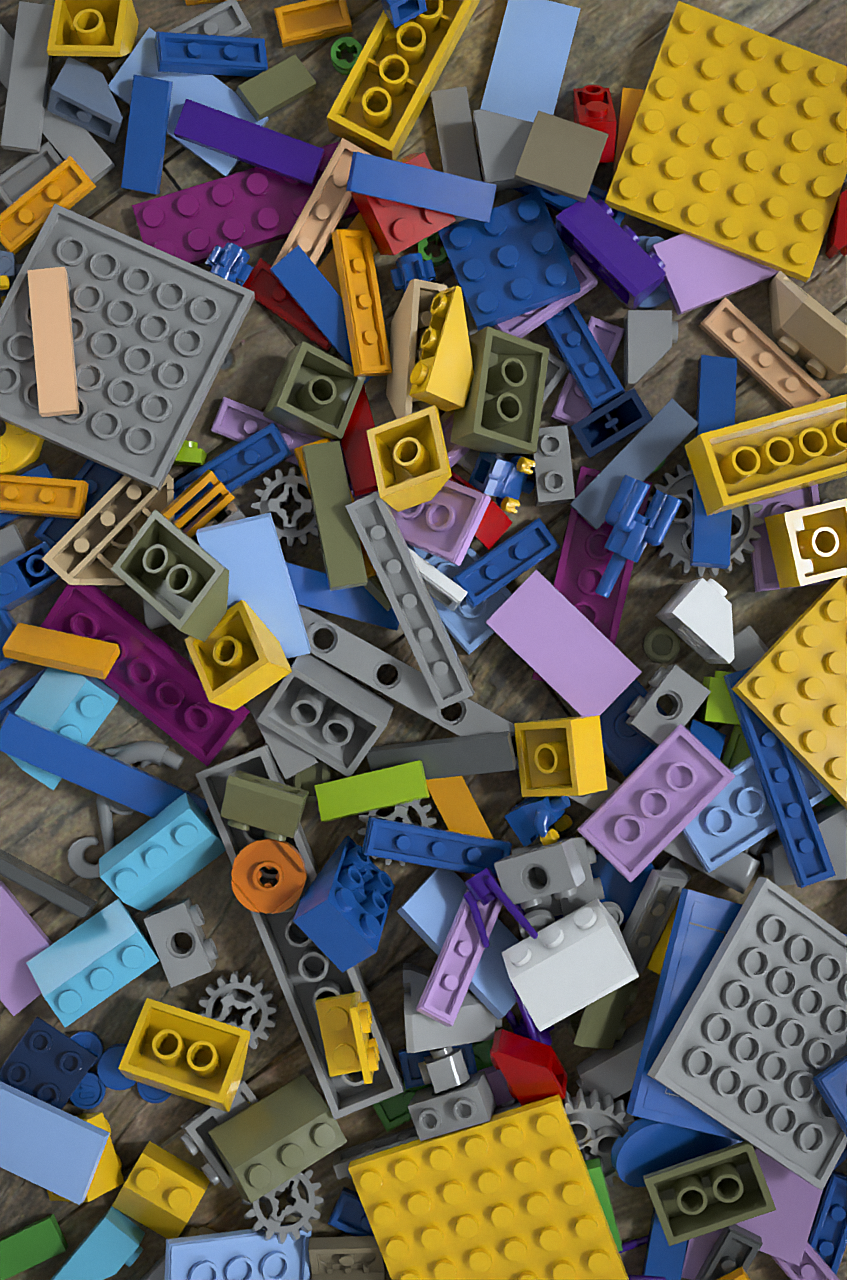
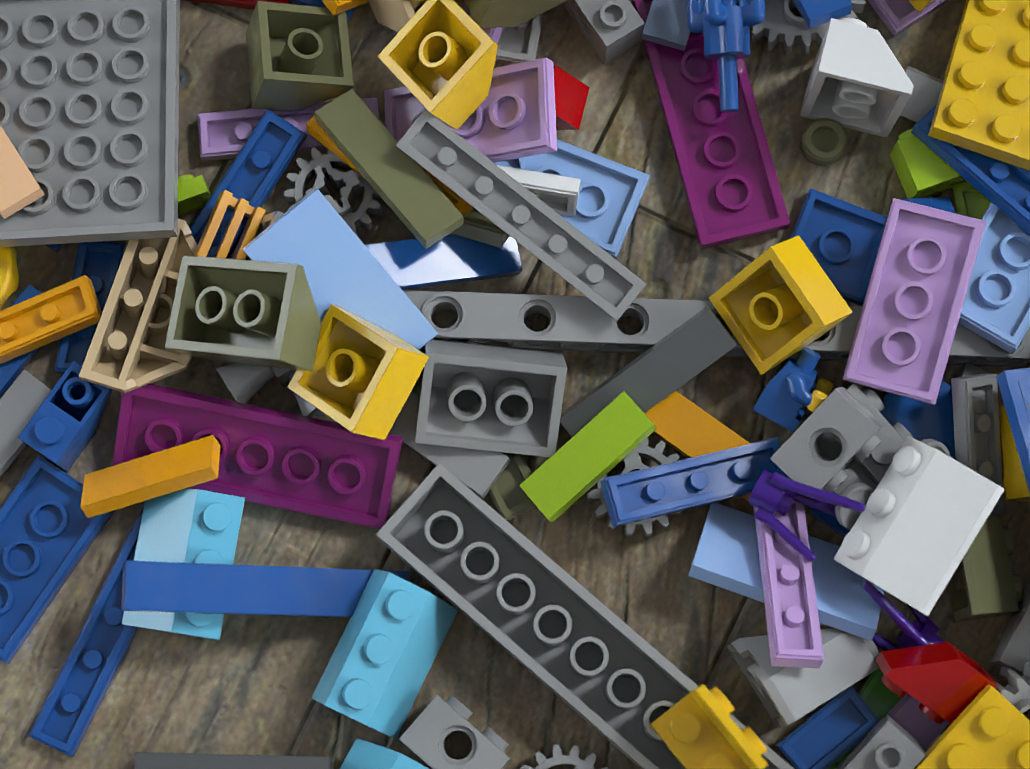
camera: 25 degrees left, 10 degrees down
(139, 751) = (299, 552): light grey plant -> none
(263, 804) = (474, 520): olive slope -> none
(268, 897) = (508, 578): orange plate -> none
(346, 906) = (628, 596): blue slope -> none
(357, 448) = (382, 89): red tile -> none
(444, 1068) = (839, 729): light grey plate -> none
(503, 478) = (556, 40): blue piece -> none
(506, 562) = (606, 134): blue tile -> none
(563, 646) = (715, 189): lavender tile -> none
(686, 698) = (879, 174): light grey brick -> none

